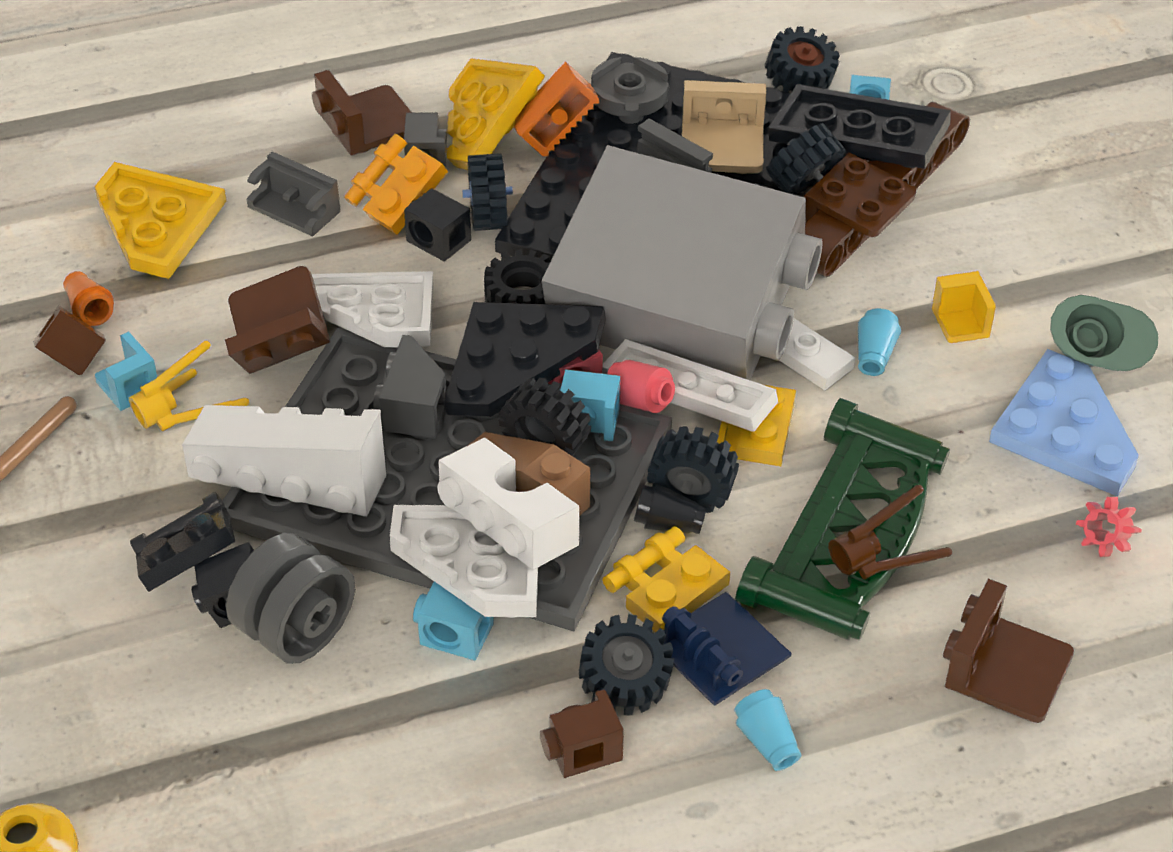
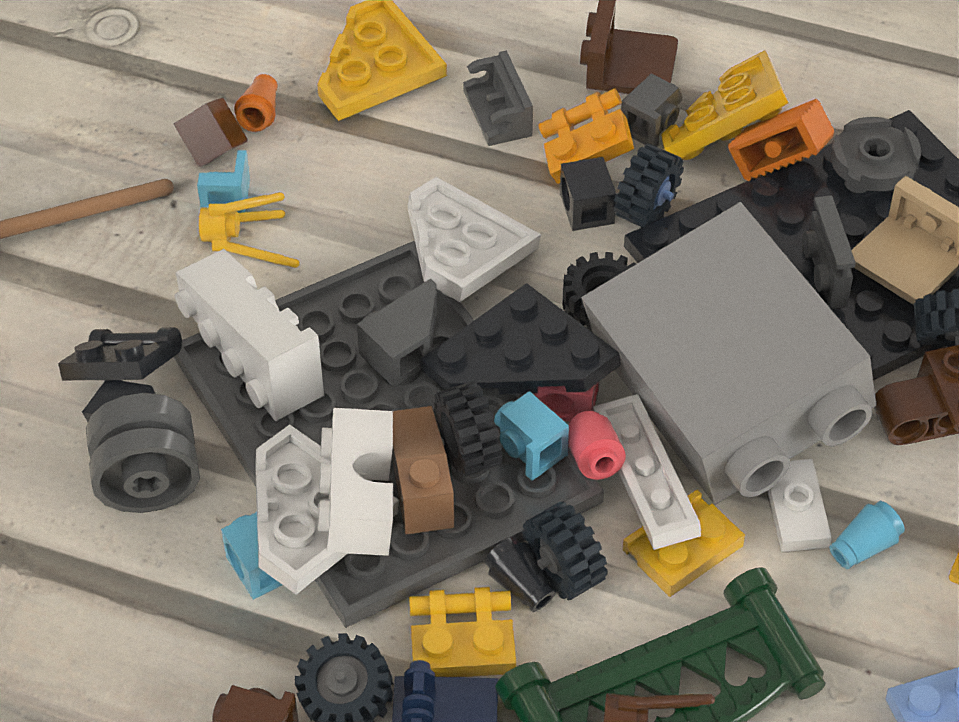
camera: 40 degrees right, 5 degrees up
(276, 320) = (368, 207): reddish brown bracket -> none

